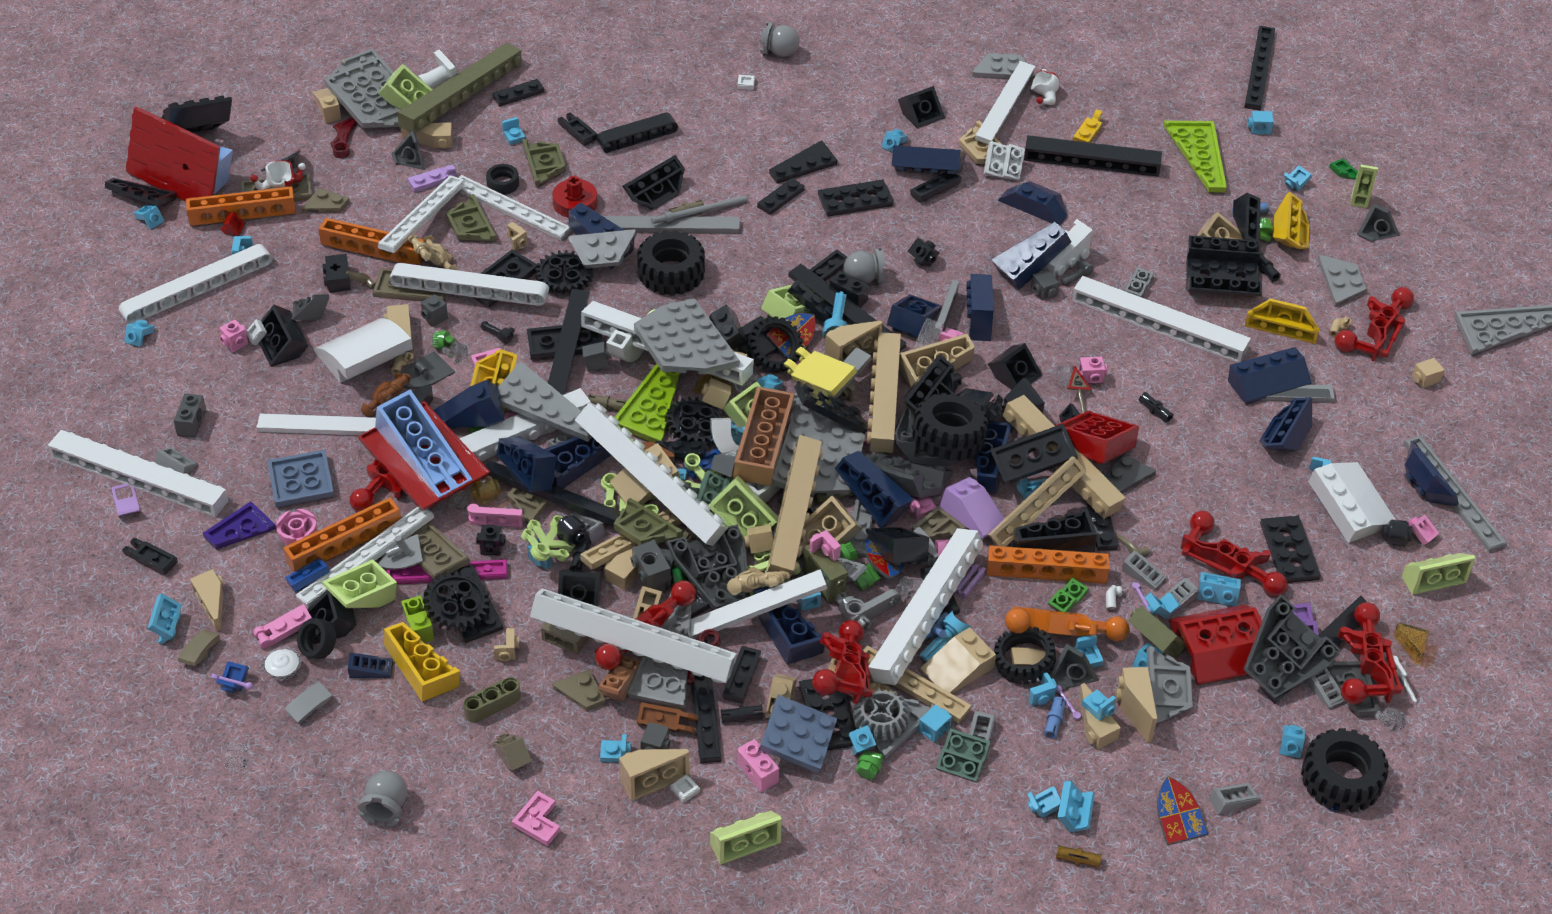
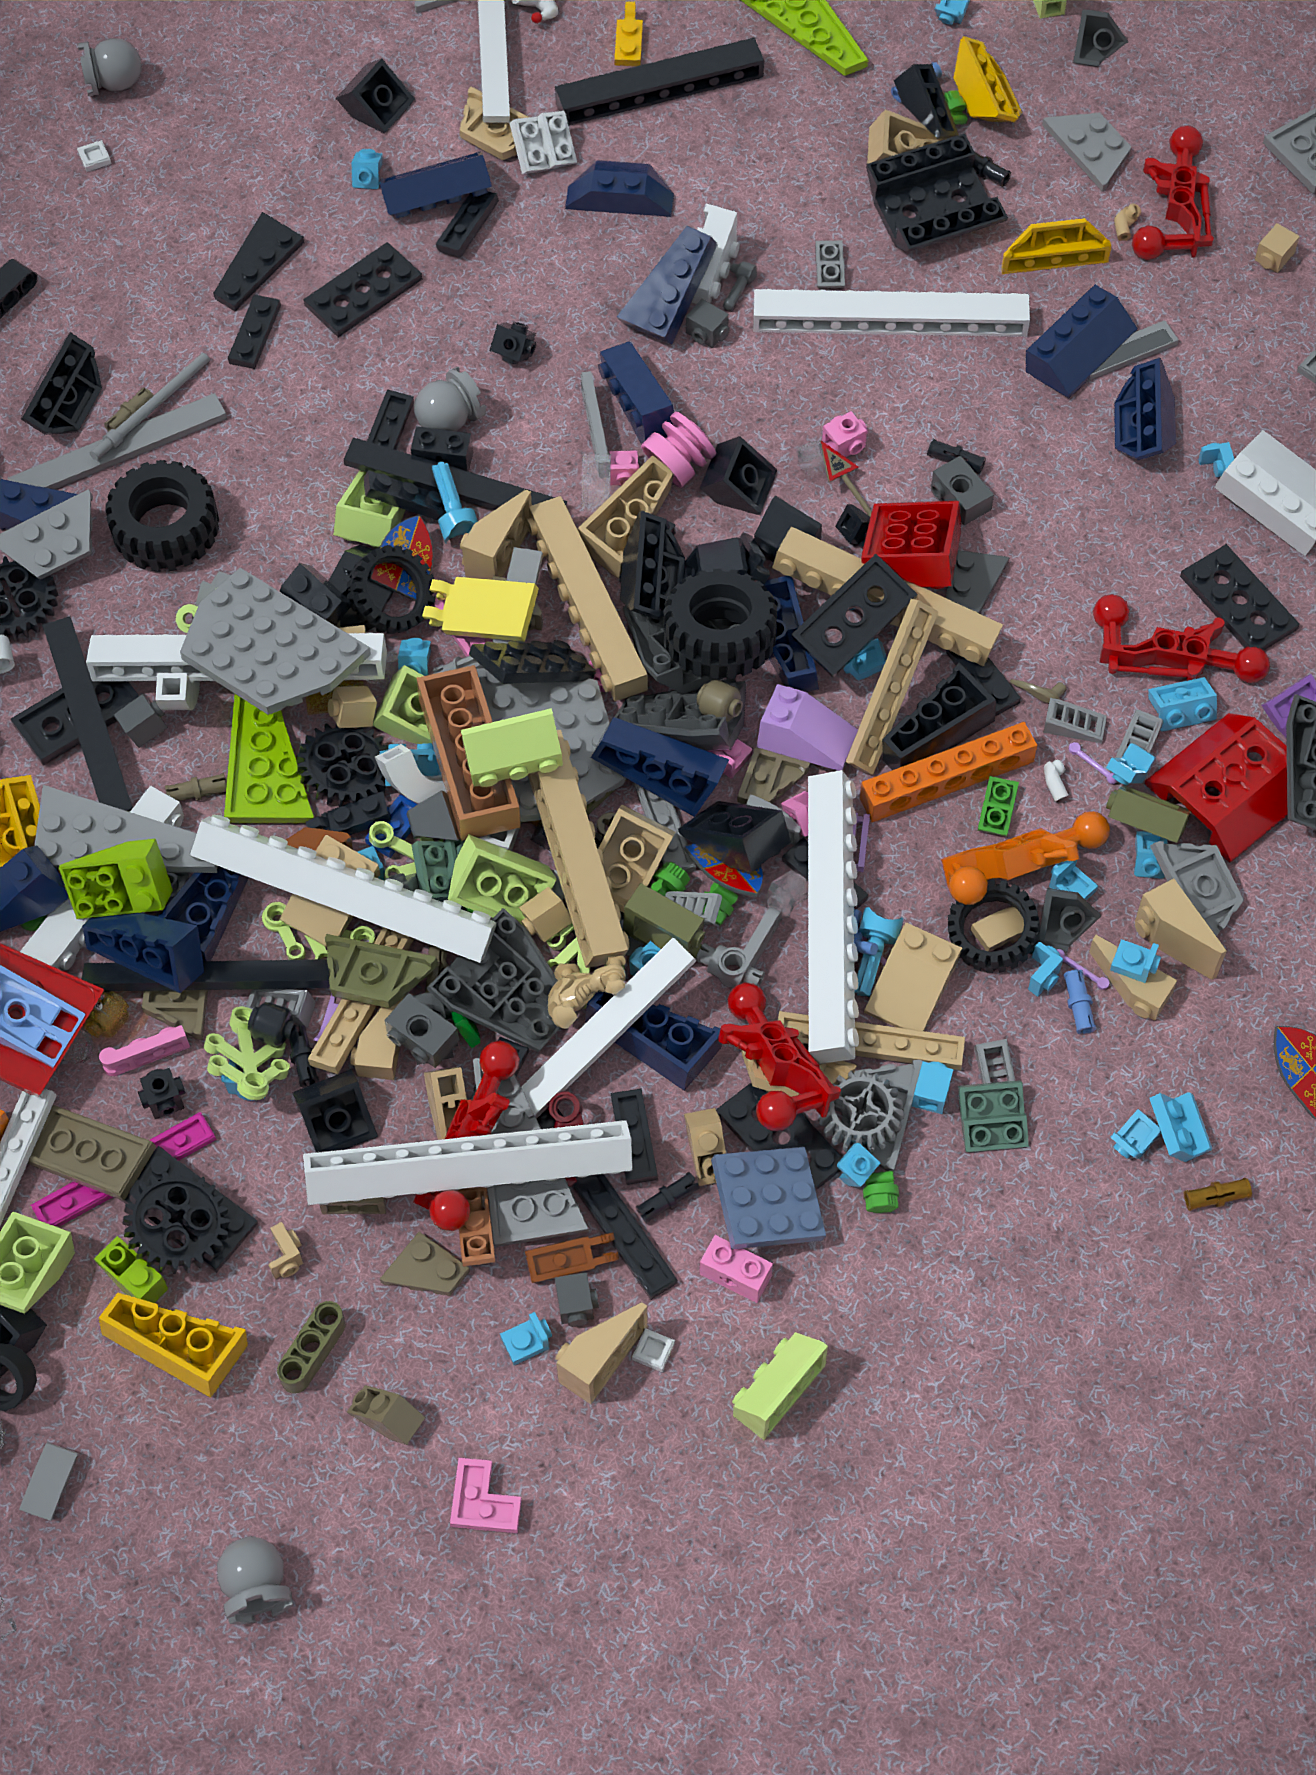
camera: 25 degrees left, 15 degrees up
(369, 672) = (95, 1394): dark blue slope -> none
(403, 555) = (47, 1178): light grey shield -> none
(530, 420) = (118, 880): none -> lime slope
(784, 433) = (512, 748): none -> yellowish green slope
(826, 543) = (660, 891): bright pink bracket -> none
(910, 314) = (553, 451): dark blue slope -> none
(929, 468) = (719, 700): none -> dark tan head
(988, 336) = (684, 444): none -> bright pink wheel
(1149, 423) = (959, 477): none -> dark grey brick

